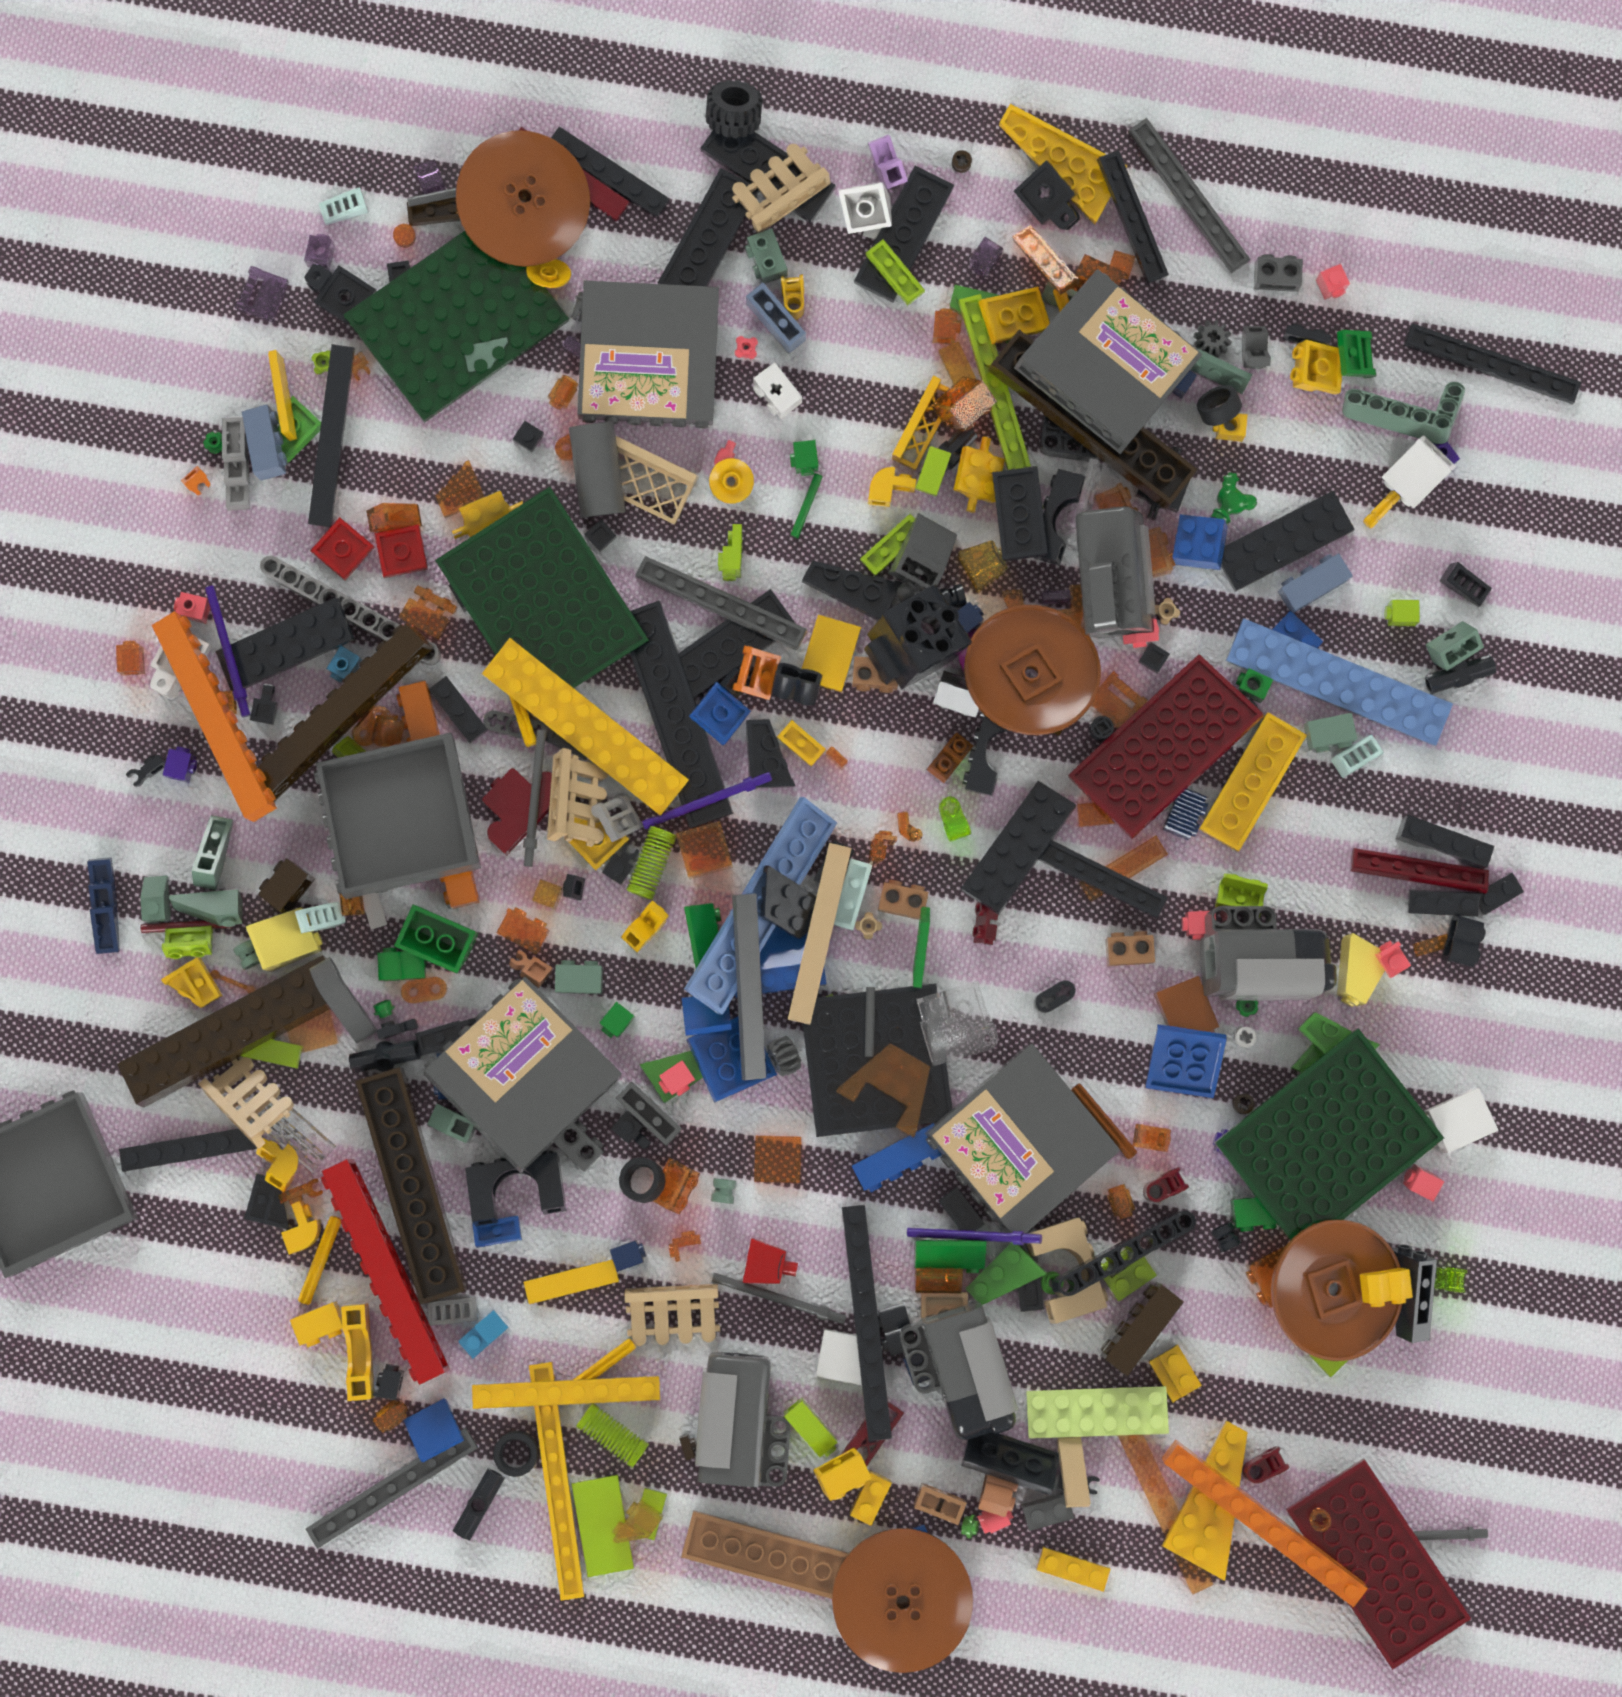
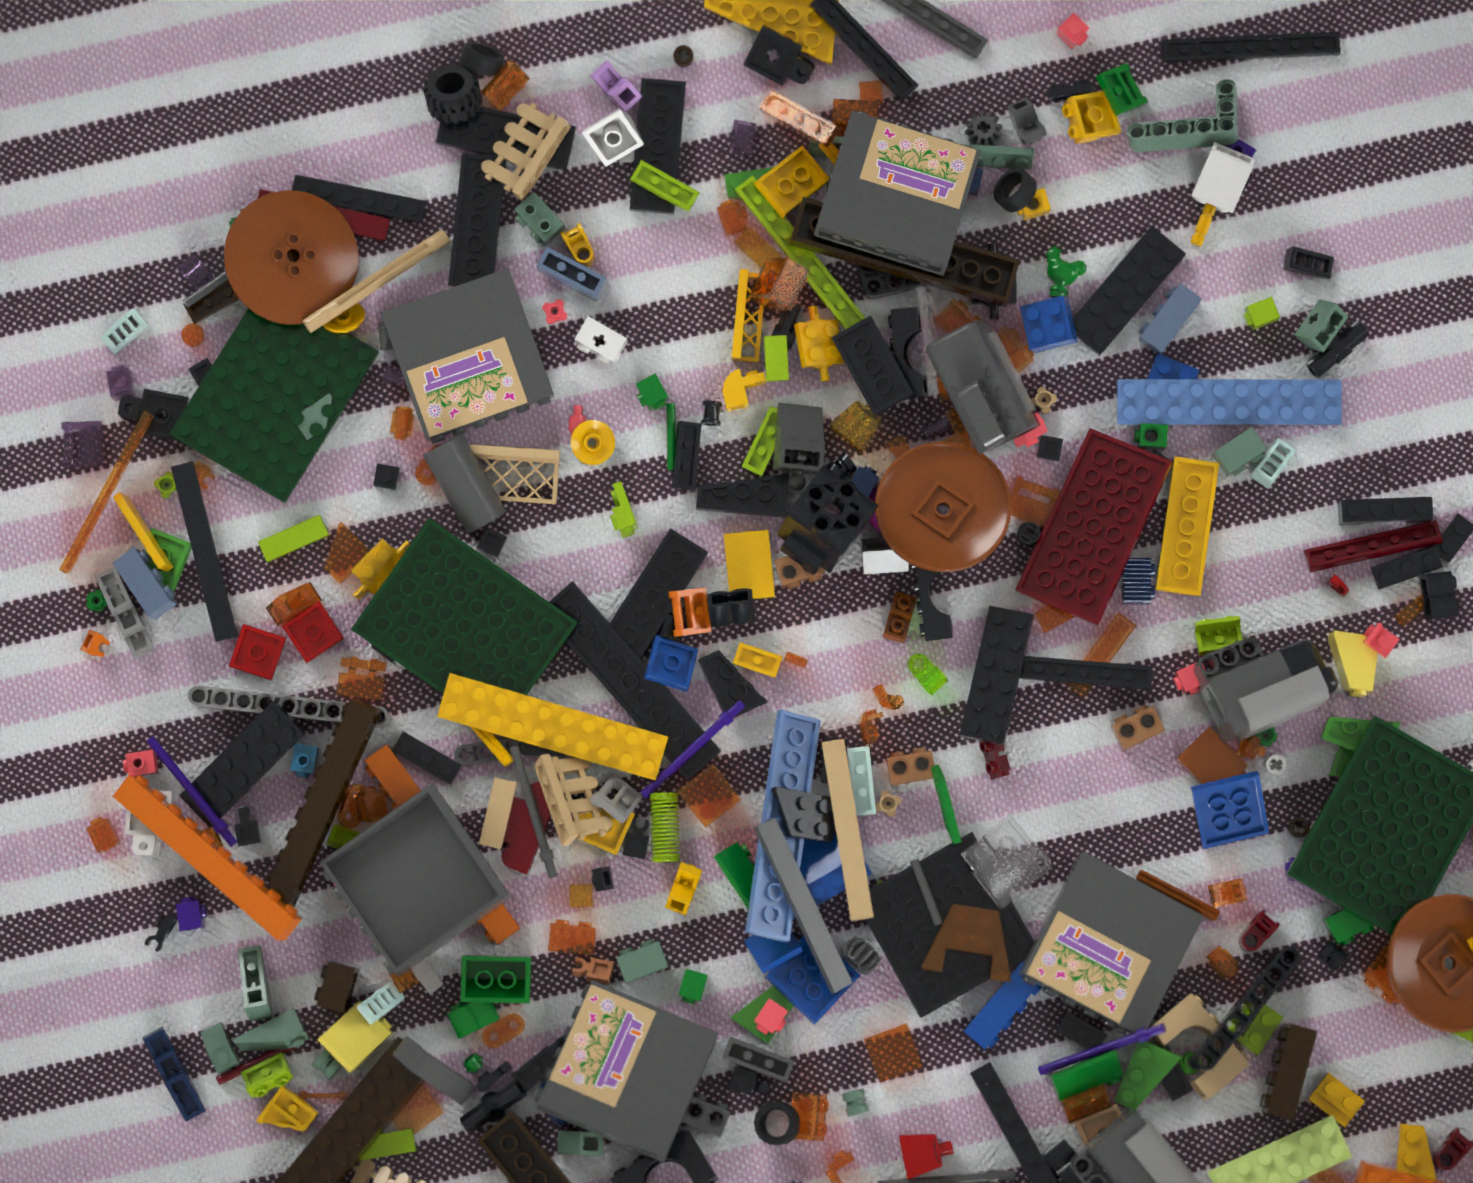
camera: 15 degrees left, 0 degrees up
(264, 345) = (106, 492): none -> clear orange tile
(419, 458) = (293, 538): none -> lime tile
(501, 786) = (498, 813): none -> tan tile
(591, 252) = (375, 281): none -> tan piece
(721, 603) = (630, 560): dark grey tile -> none
(774, 88) = (481, 59): none -> black tyre
(785, 121) = (505, 85): none -> clear orange bracket
(813, 528) = (686, 455): none -> black plate
(852, 498) = (711, 413): none -> black bush
(1052, 992) = (1082, 795): black beam -> none
(1075, 569) = (942, 391): none -> clear orange tile
(1228, 1011) = (1250, 747): none -> clear orange tile
(1278, 280) = (1021, 48): dark grey brick -> none
(1372, 894) = (1338, 585): none -> red tile

